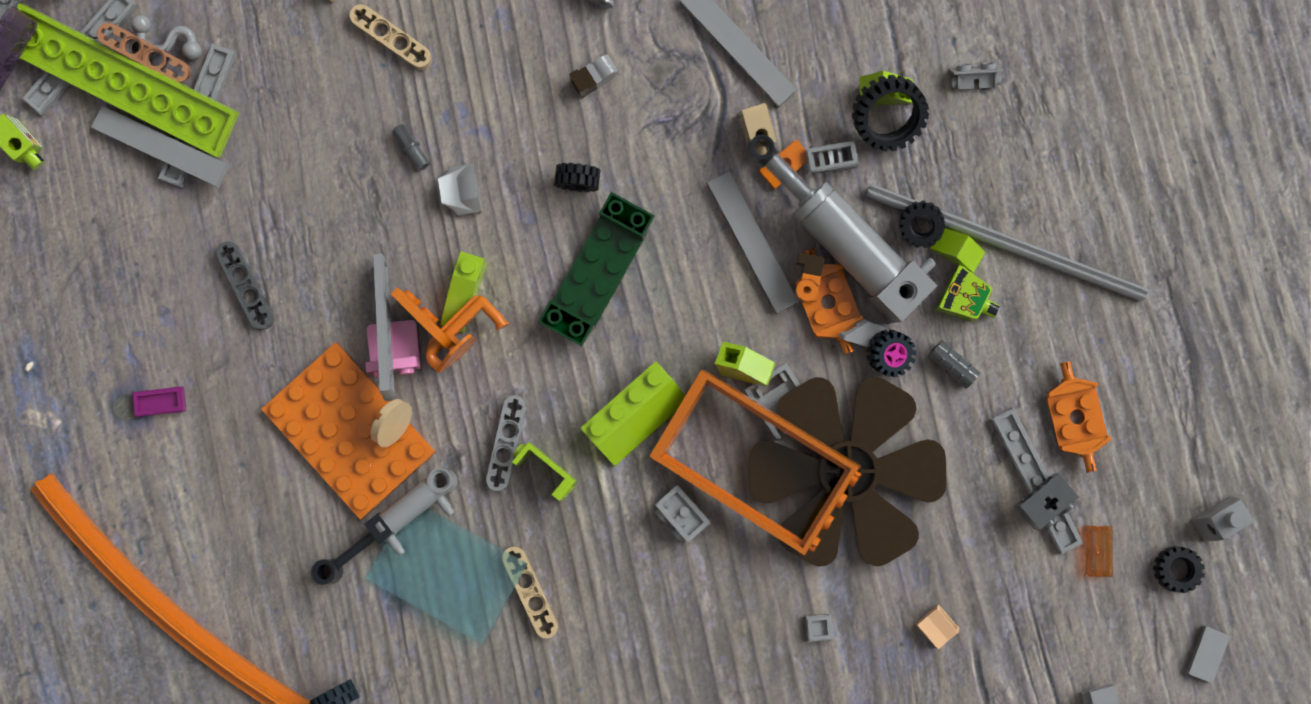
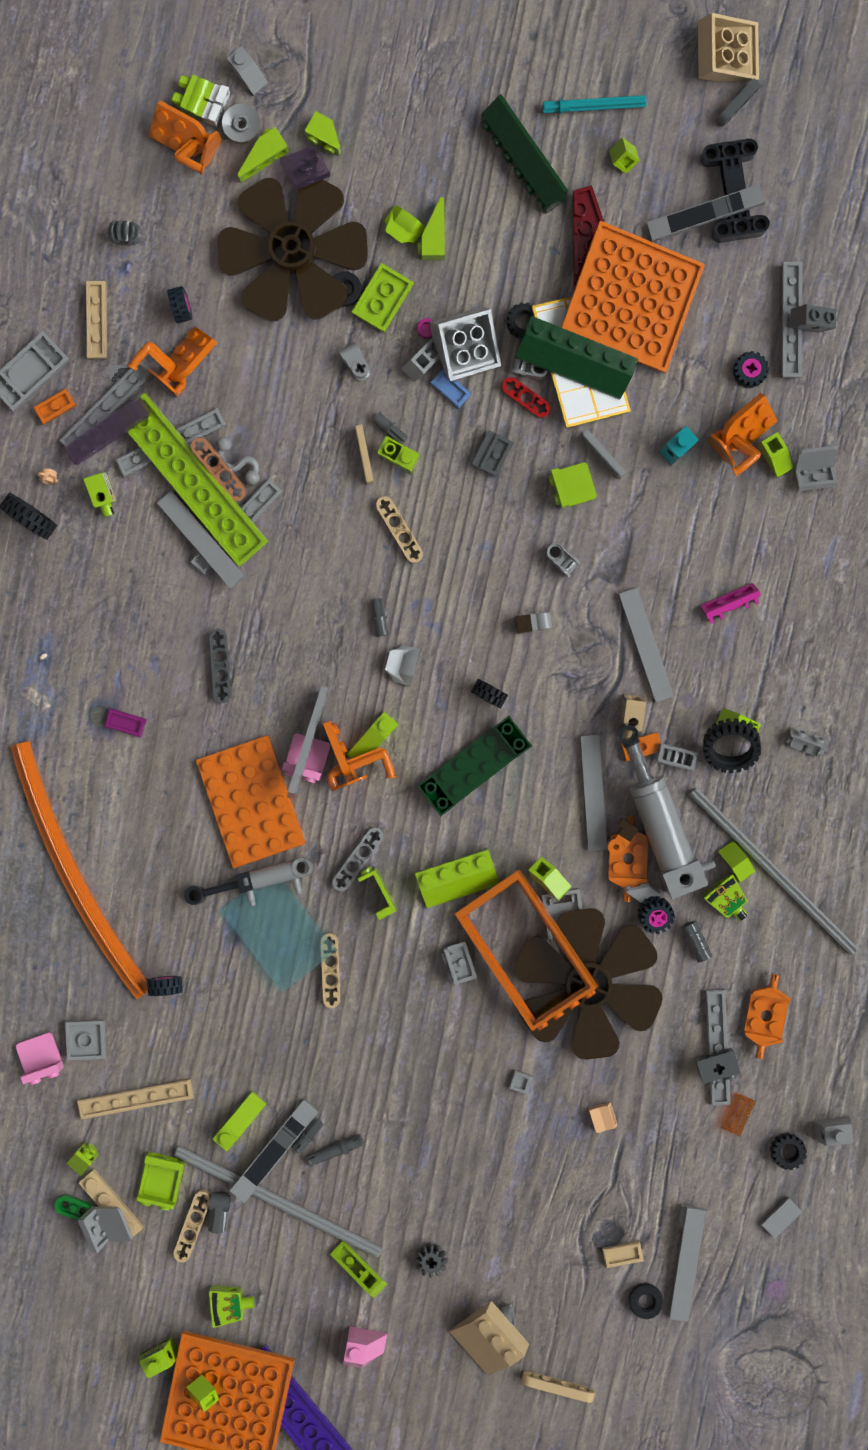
camera: 20 degrees right, 5 degrees up
(392, 423) = (288, 812): tan tile -> none
(924, 239) = (726, 825): black tyre -> none

